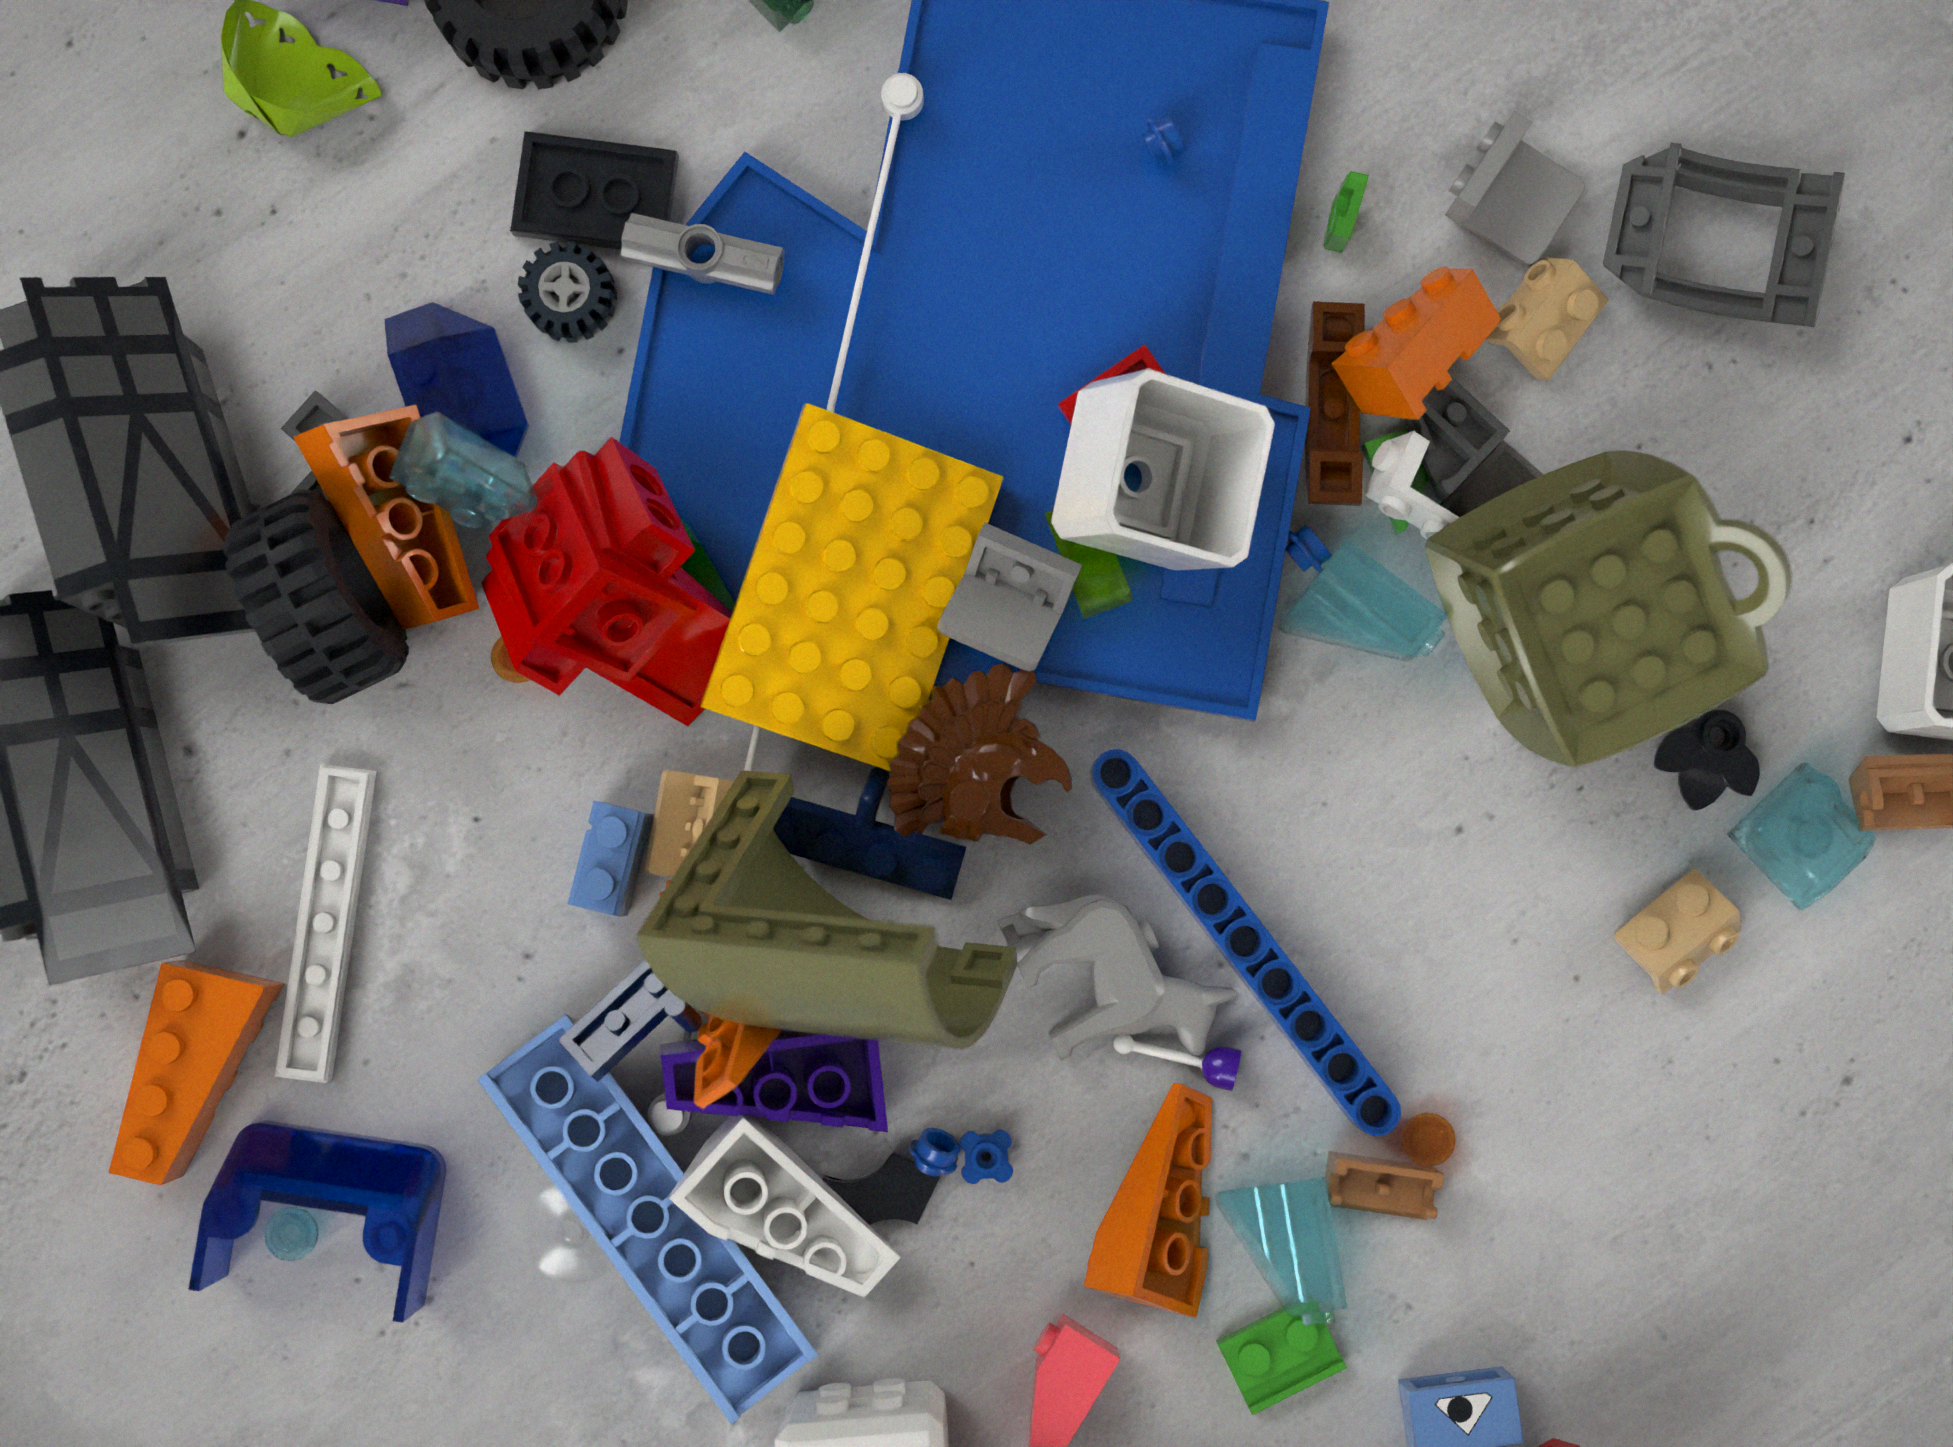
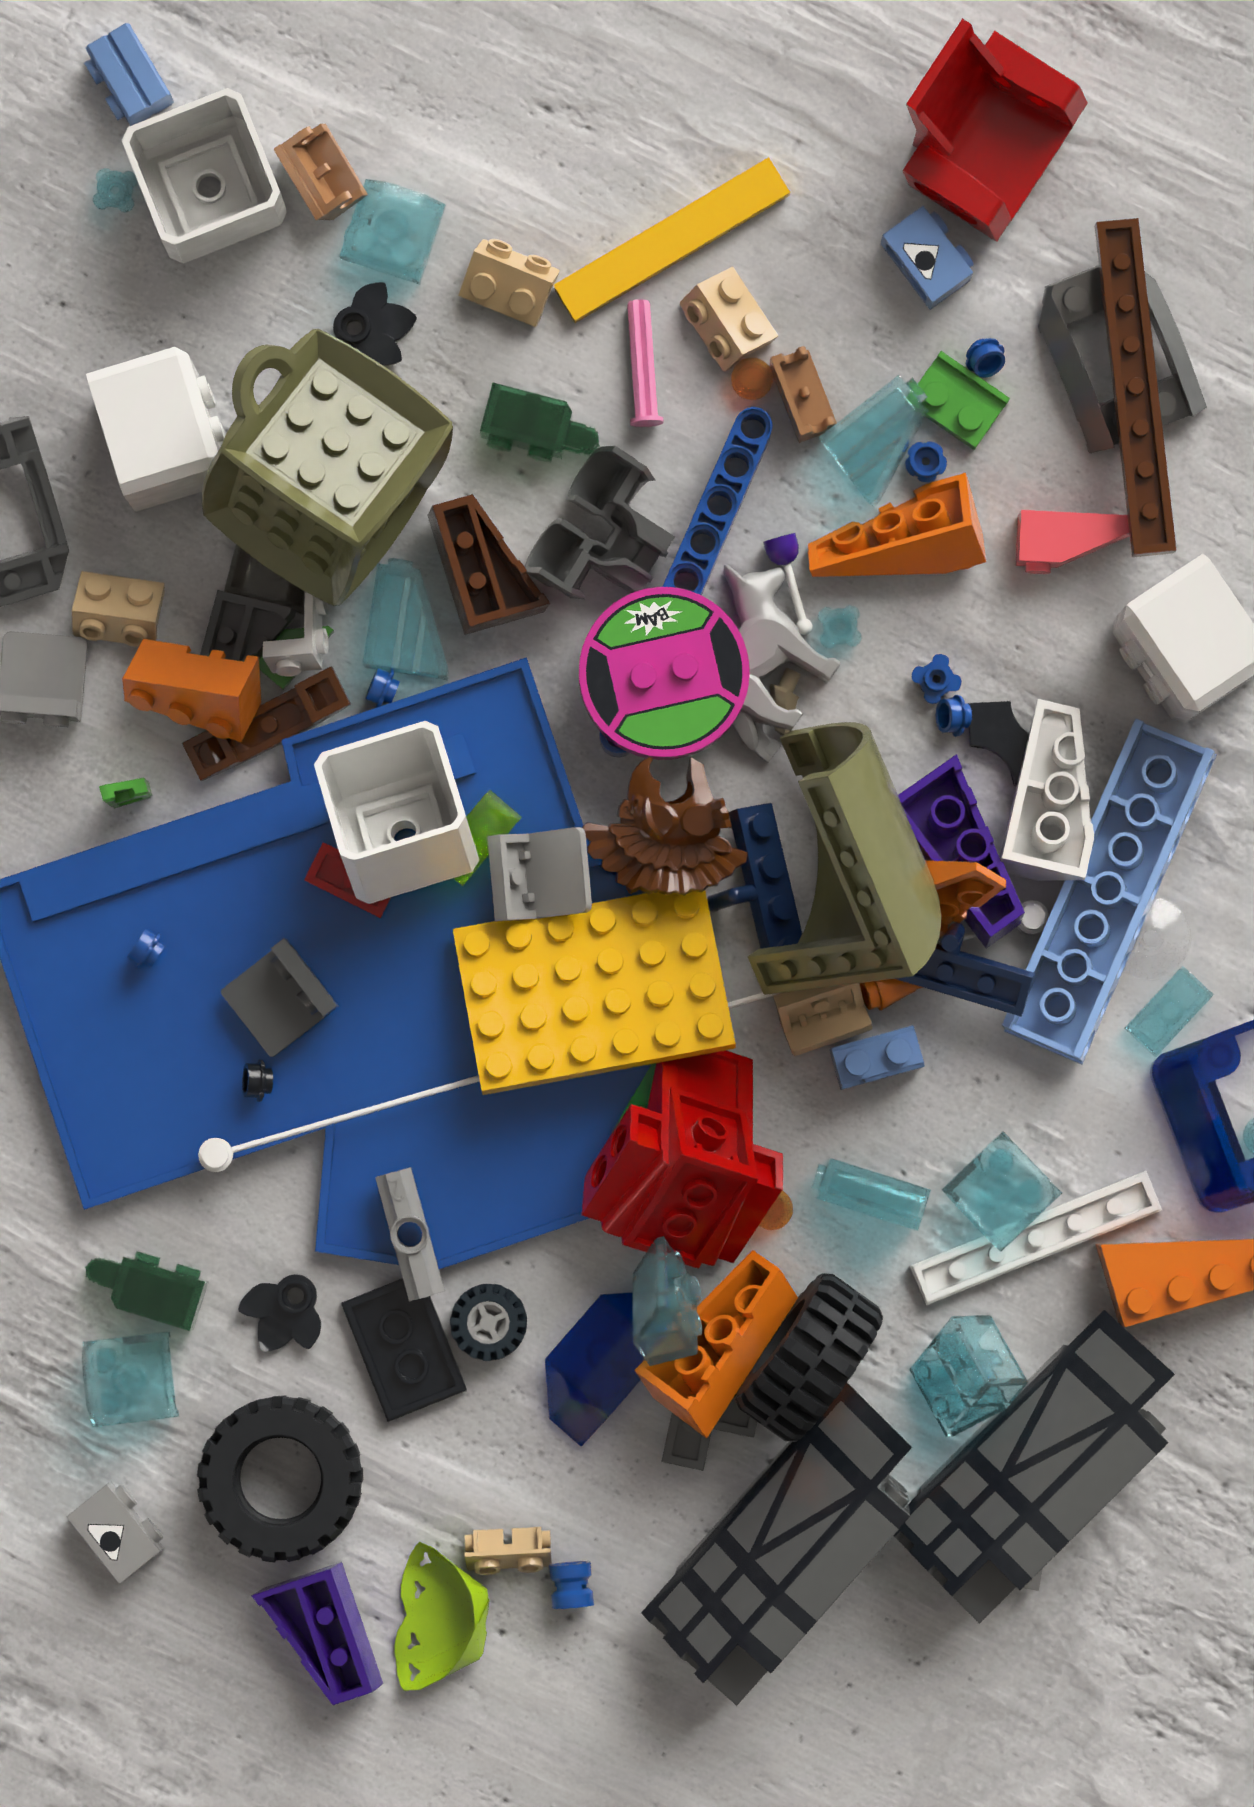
camera: 120 degrees left, 0 degrees up
(213, 765) = (967, 1373): none -> clear light blue slope
(248, 228) = (571, 1585): none -> blue wheel
(330, 164) = (489, 1554): none -> tan hinge
(389, 913) = (1001, 1191): none -> clear light blue slope
(463, 771) = (871, 1193): none -> clear light blue slope
(484, 1206) = (1168, 1011): none -> clear light blue plate
(698, 83) = (280, 1317): none -> black plate
(957, 182) = (257, 1080): none -> black plate
(1032, 253) = (279, 998): none -> dark grey bracket
(1061, 978) = (783, 693): none -> dark tan bar
(1108, 1096) = (829, 620): none -> clear light blue plate
(1156, 858) = (663, 673): none -> brick
(1236, 1294) = (928, 450): none -> blue plate
(1312, 1414) = (985, 357): none -> blue plate
(1314, 904) = (604, 489): none -> dark grey piece
(1375, 725) = (480, 568): none -> reddish brown wedge
(1507, 871) = (534, 424): none -> clear green hinge
(1508, 1027) = (642, 365): none -> bright pink axle
(1510, 1150) = (727, 318): none -> tan bracket
(1630, 1138) = (671, 240): none -> yellow tile
(1746, 437) = (157, 426): none -> white plate

